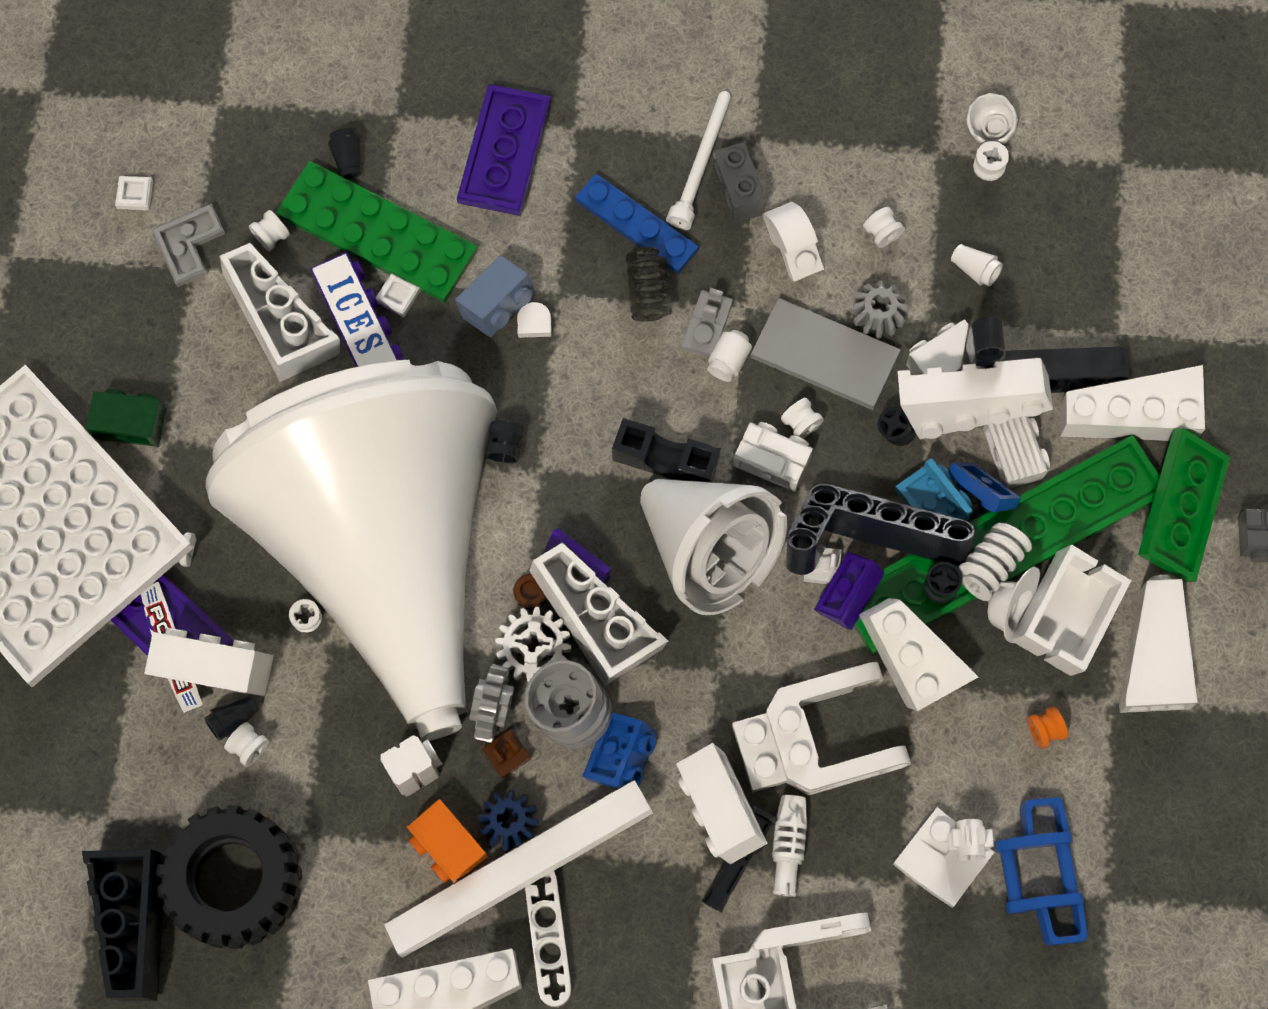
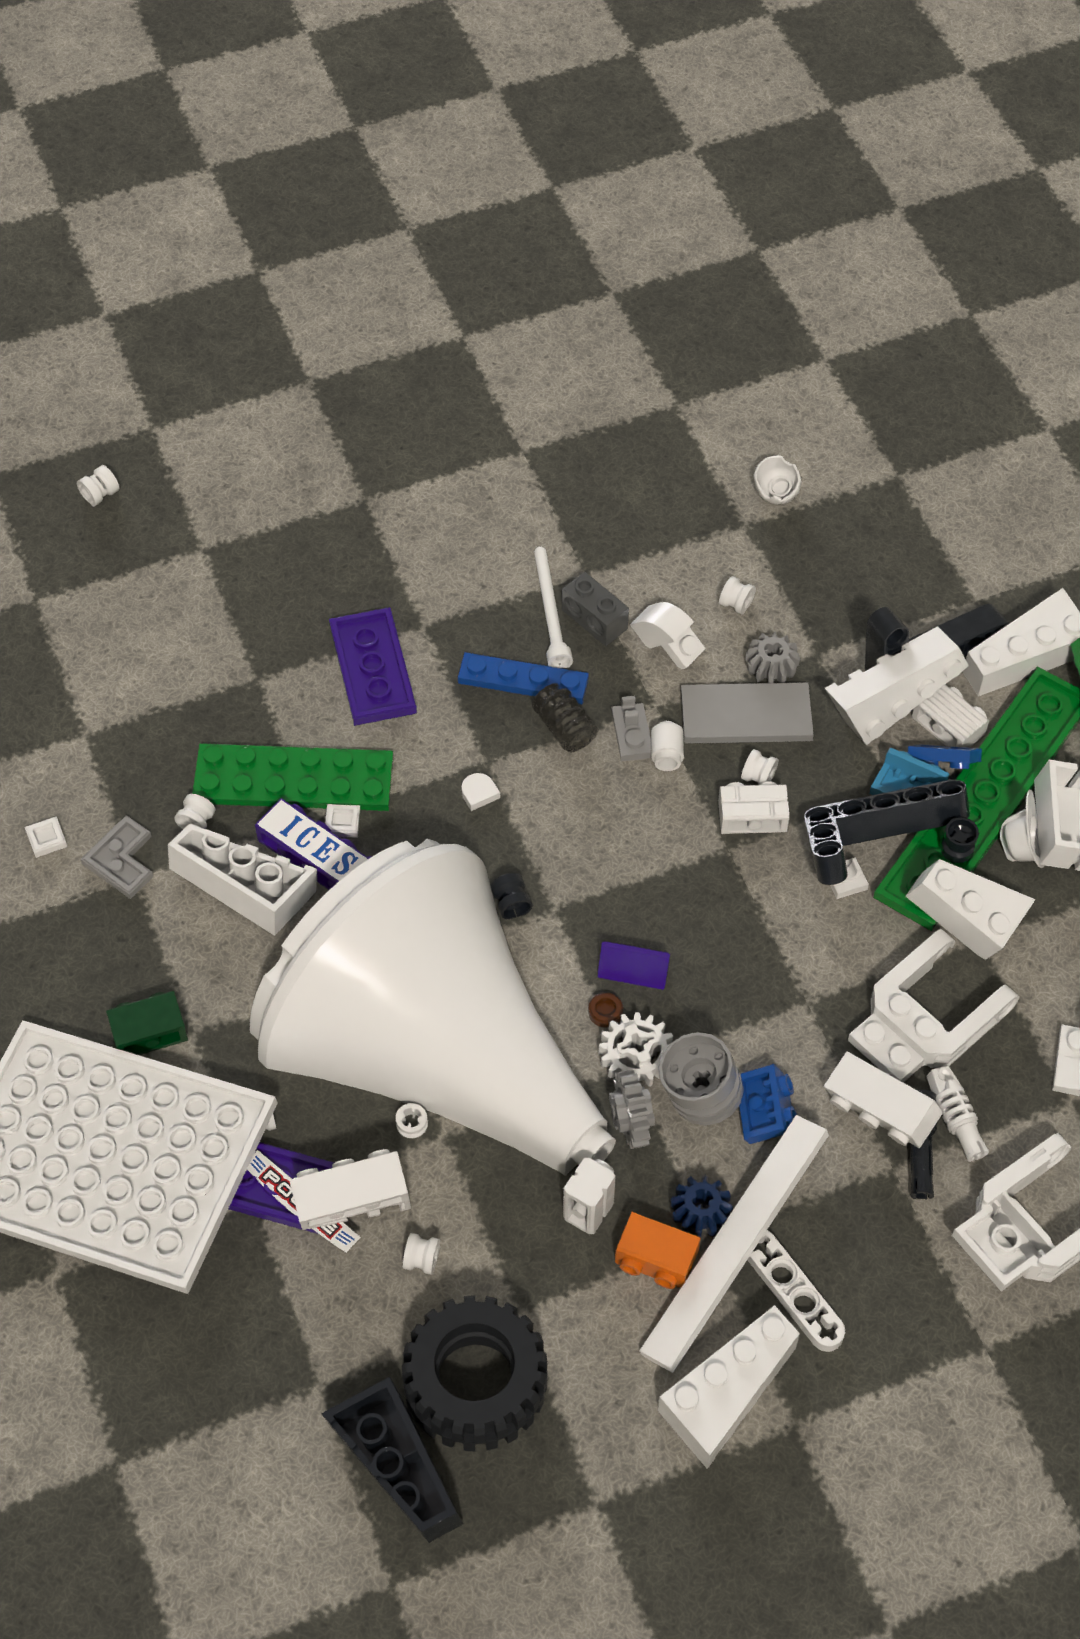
camera: 30 degrees left, 15 degrees down
(229, 716) = (390, 1239): black cone -> none
(346, 152) = (229, 723): black cone -> none
(495, 296) = (435, 781): sand blue brick -> none
(506, 754) = (664, 1154): reddish brown tile -> none
(595, 616) = (675, 994): white wedge -> none
(646, 450) = (684, 844): black arch -> none
(714, 538) = (744, 884): white cone -> none
(850, 590) = (884, 882): dark purple slope -> none
(891, 420) = (839, 734): black wheel -> none
(942, 351) = (845, 660): white slope -> none
(977, 264) = (831, 593): white cone -> none
(989, 168) = (788, 517): white wheel -> none
(993, 560) = (992, 802): white piece -> none

